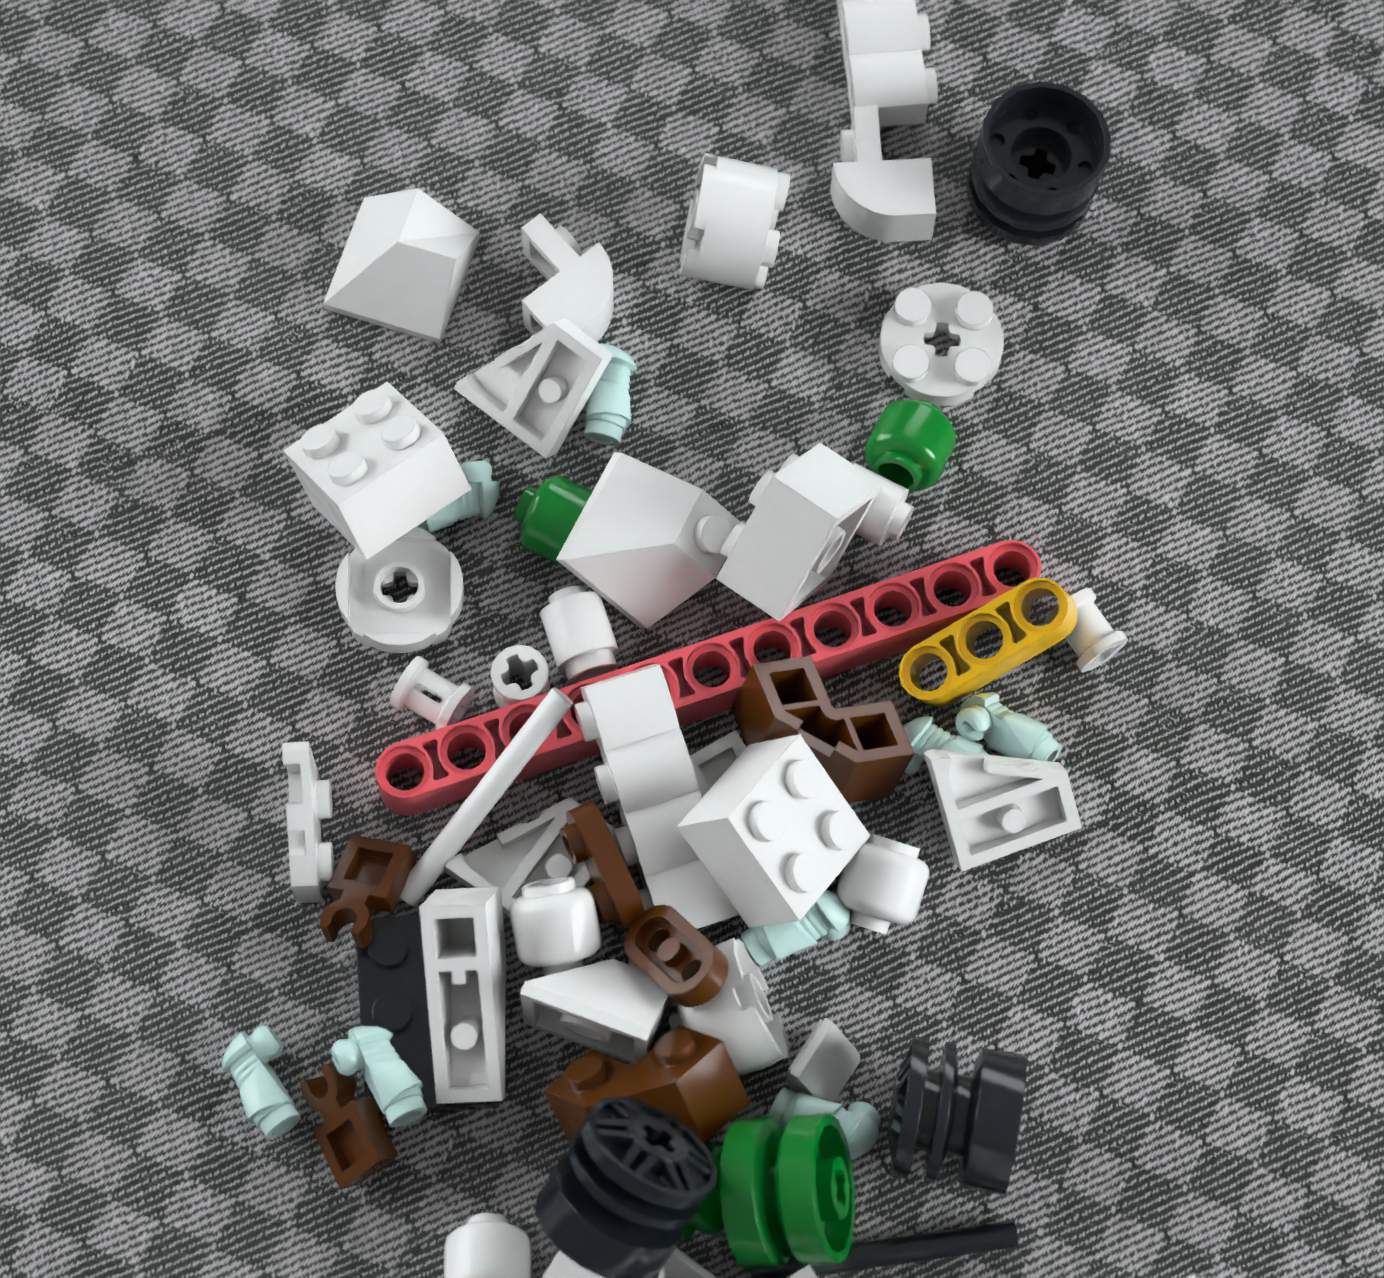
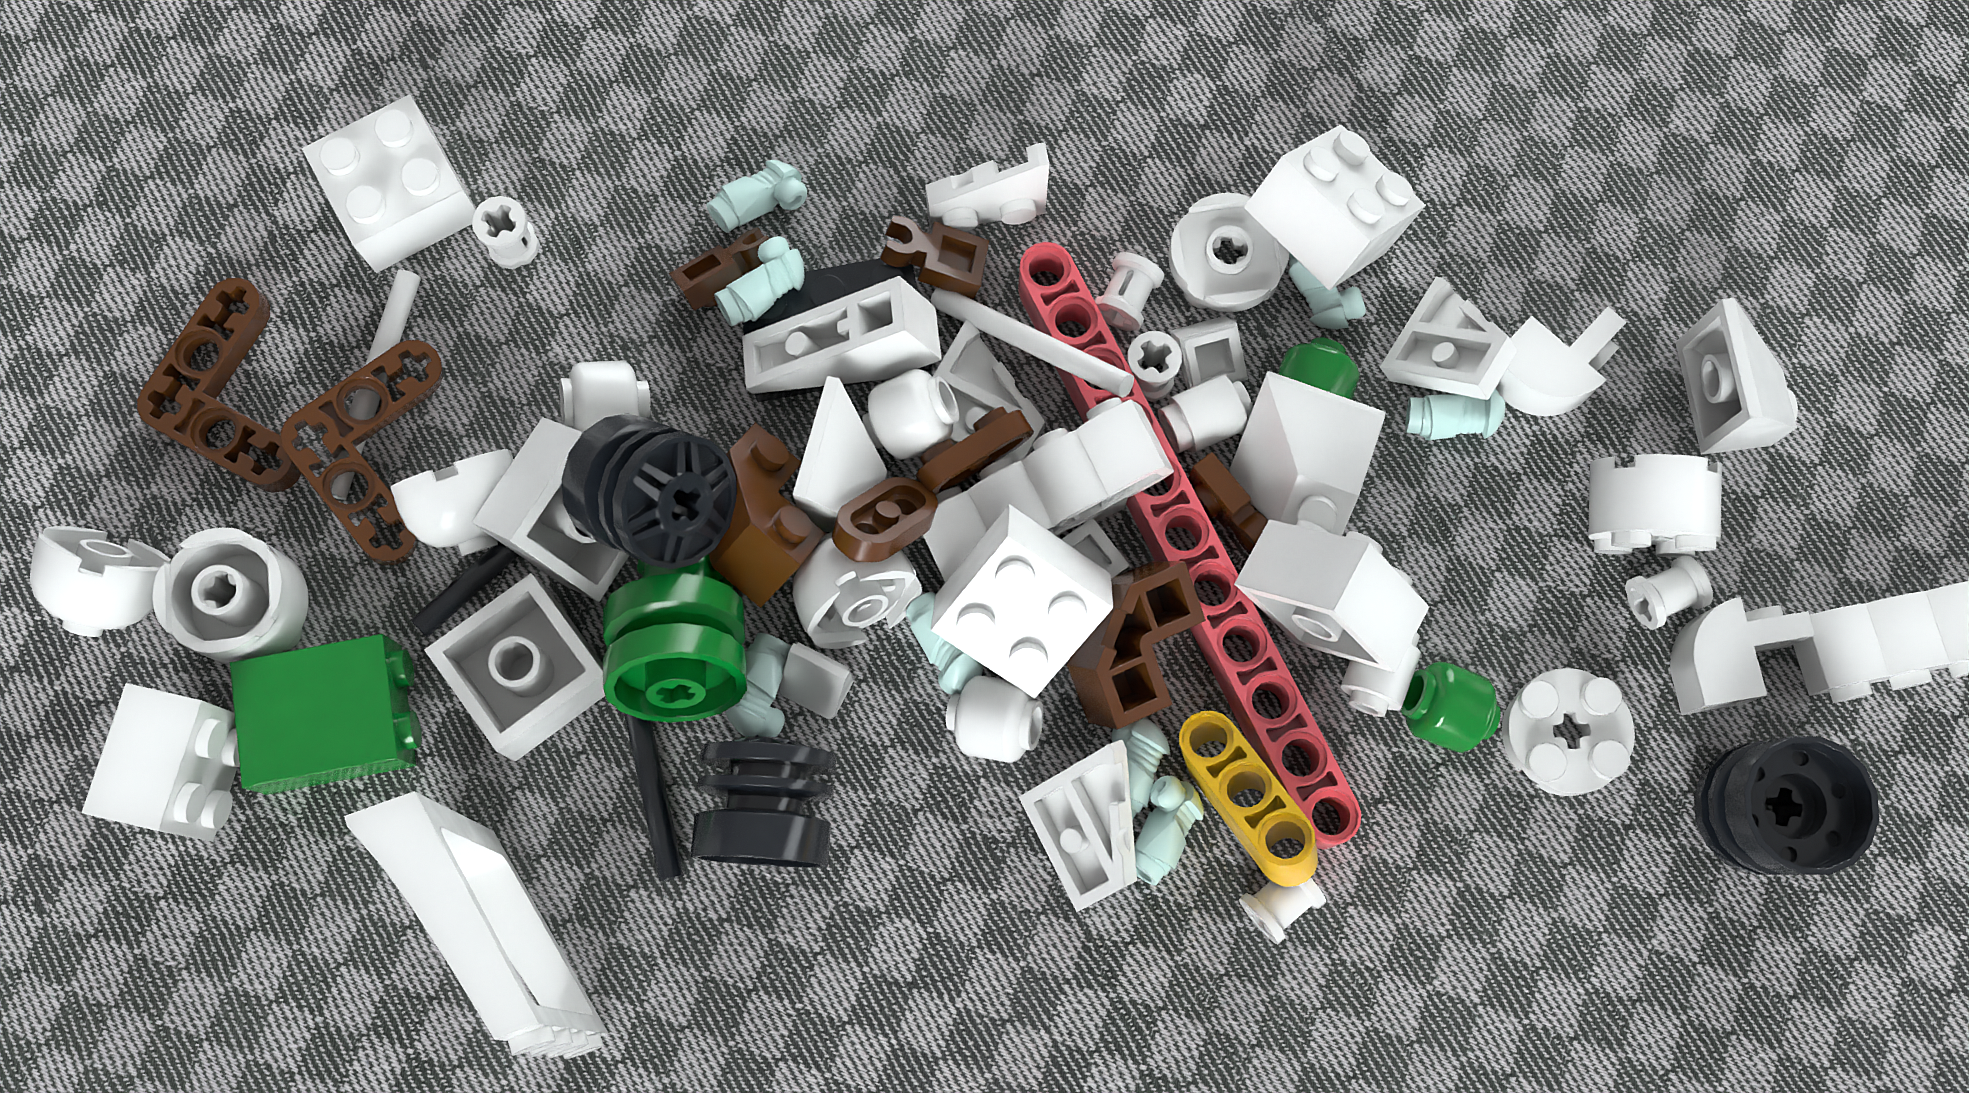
camera: 85 degrees right, 5 degrees up
(403, 264) = (1553, 220): white slope -> none
(504, 620) = (1210, 351): none -> white slope
(612, 129) = (1734, 383): none -> white slope
(681, 621) = (1226, 501): none -> reddish brown plate
(814, 227) = (1669, 592): none -> white bush

